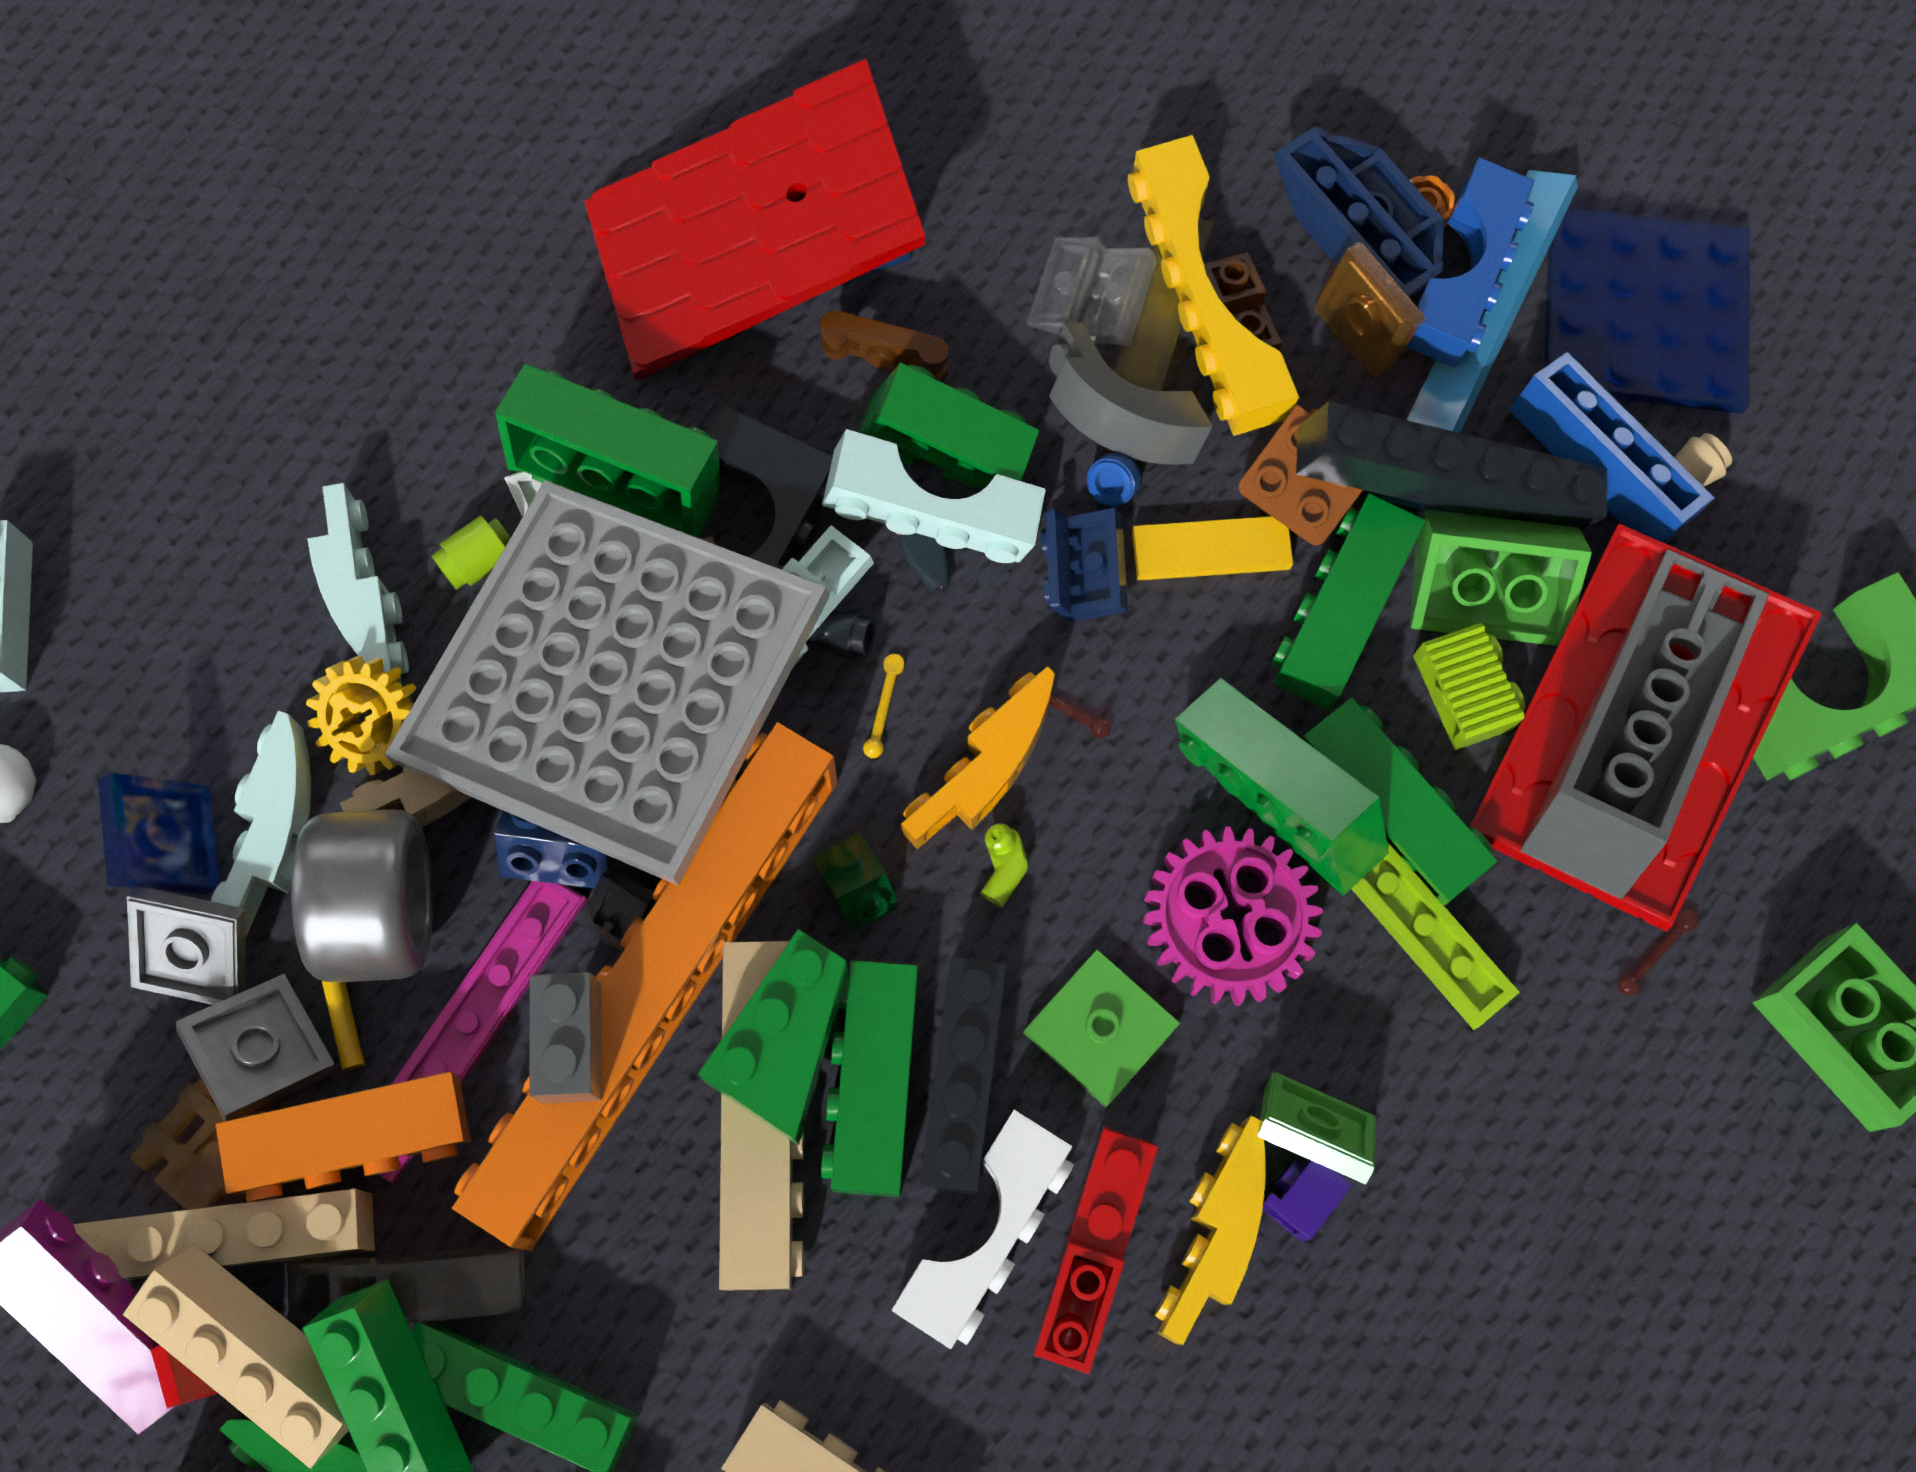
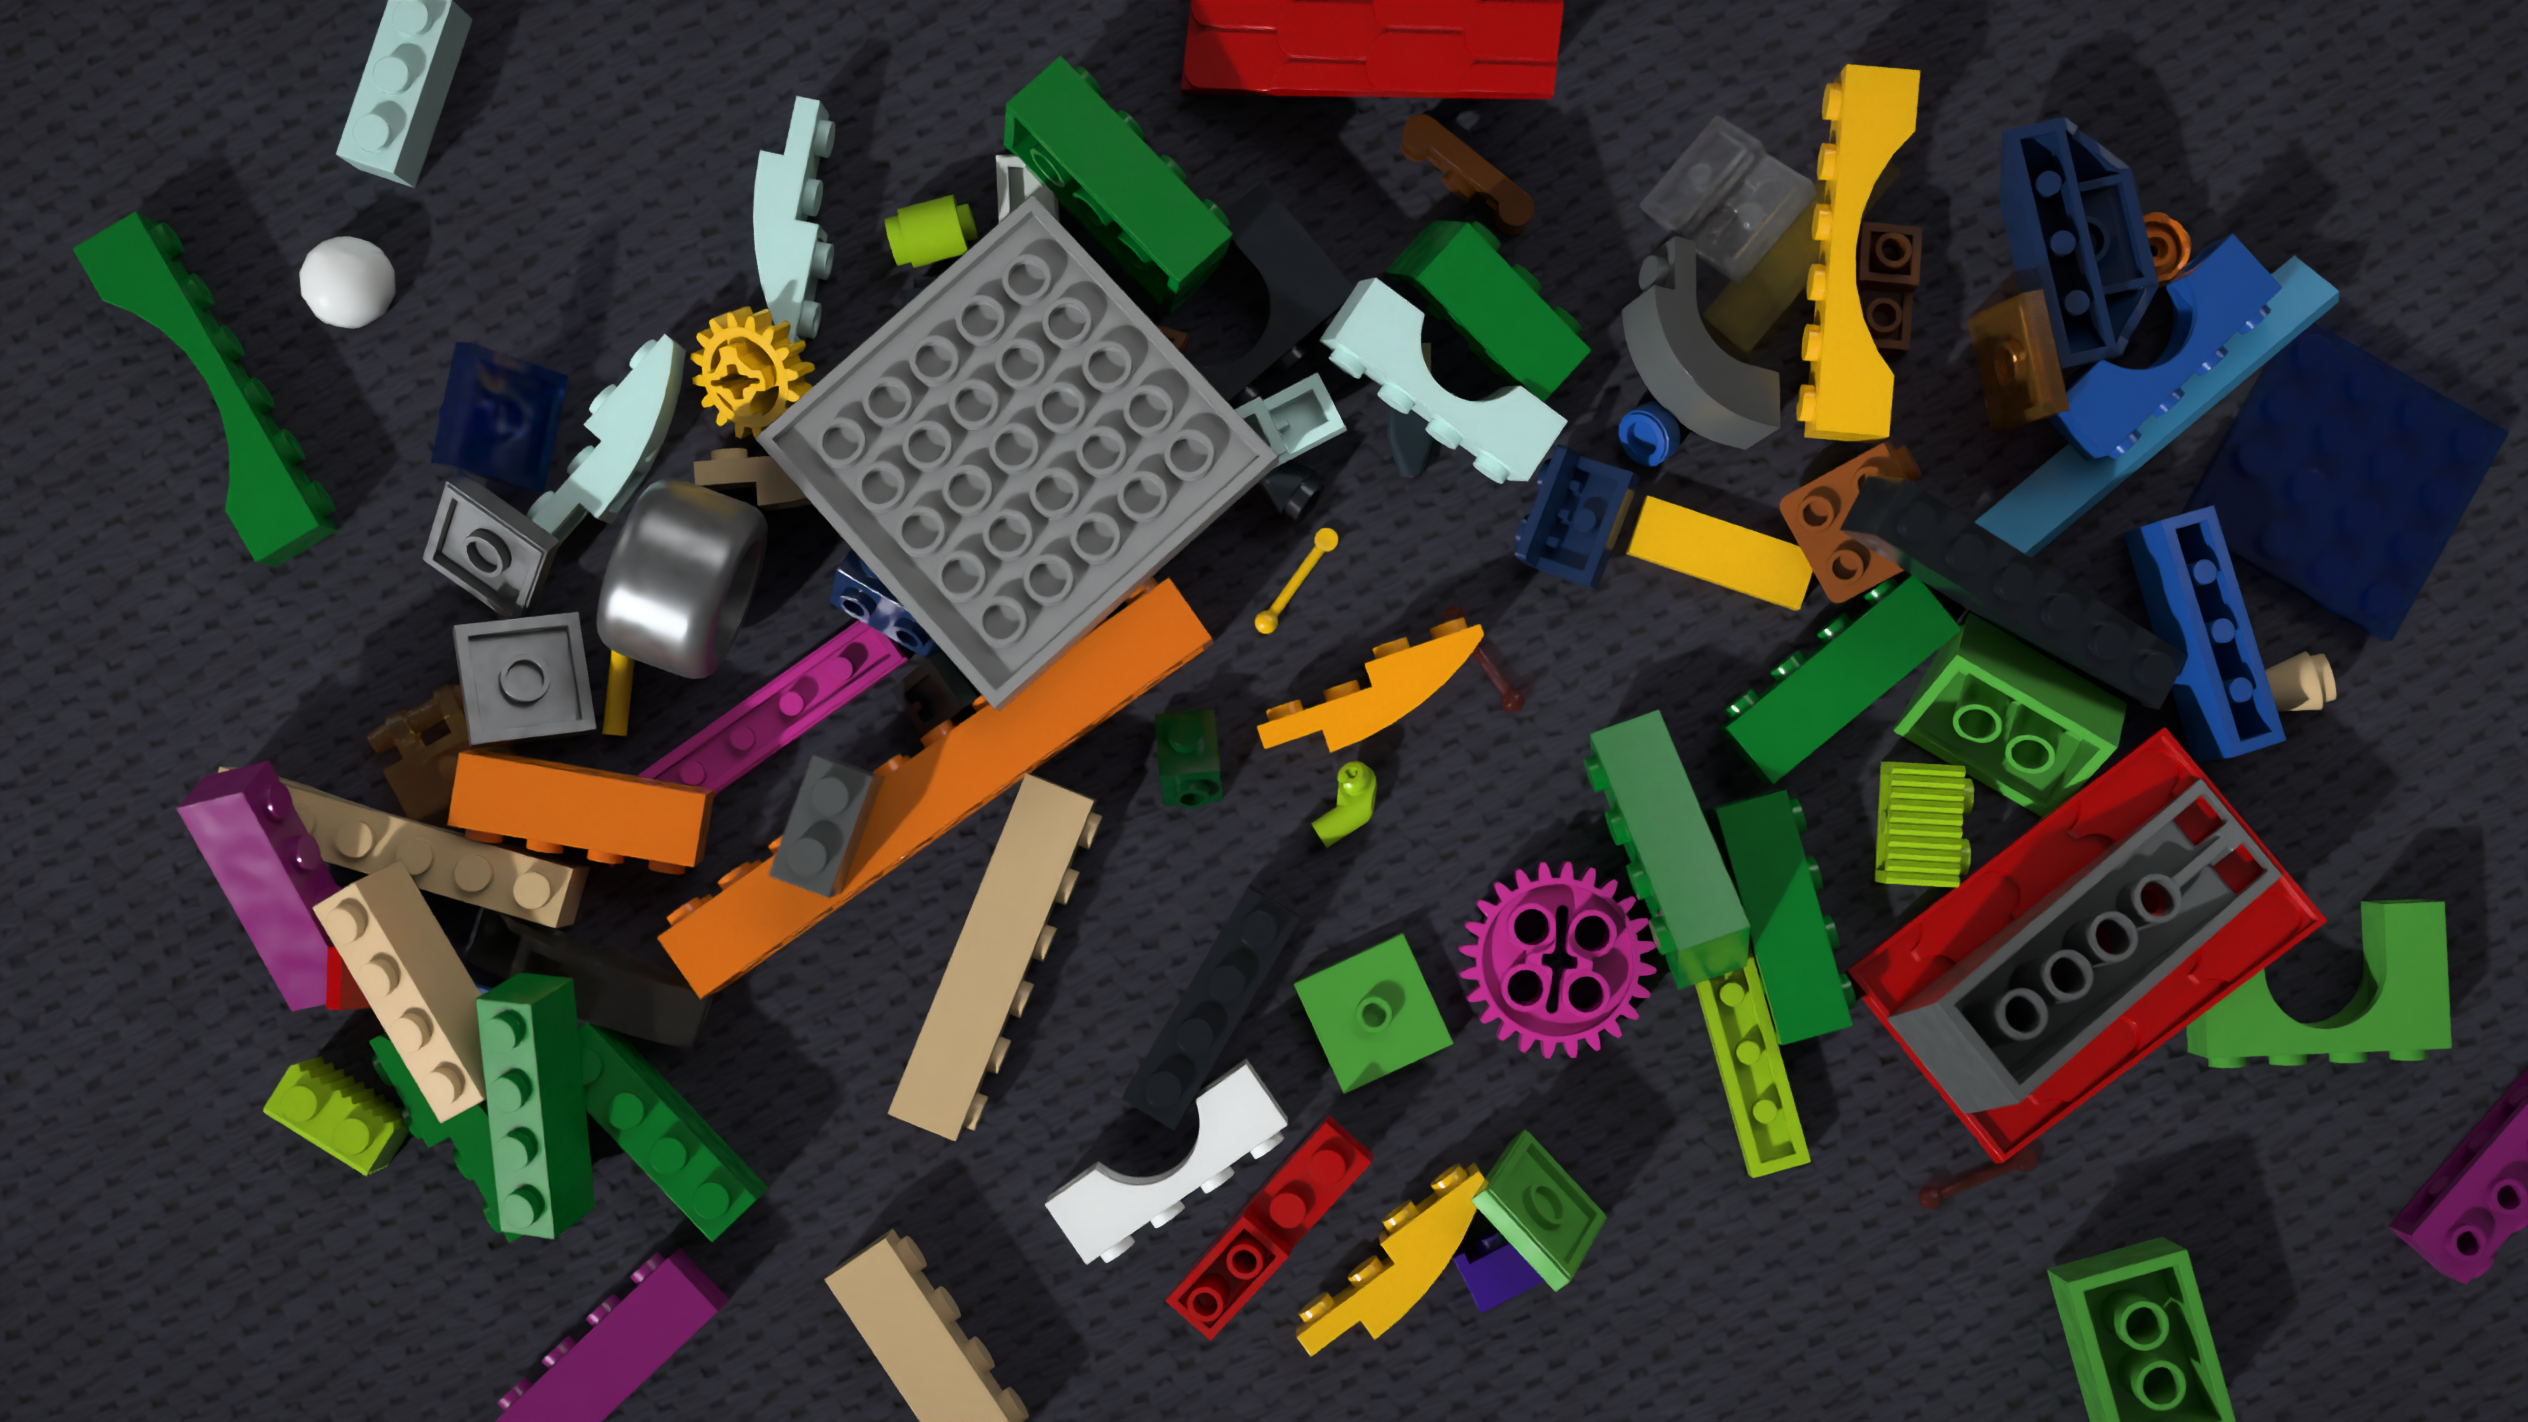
camera: 25 degrees right, 15 degrees up
(780, 1037) = (1040, 904): green wedge -> none
(873, 1080) = (1122, 970): green brick -> none

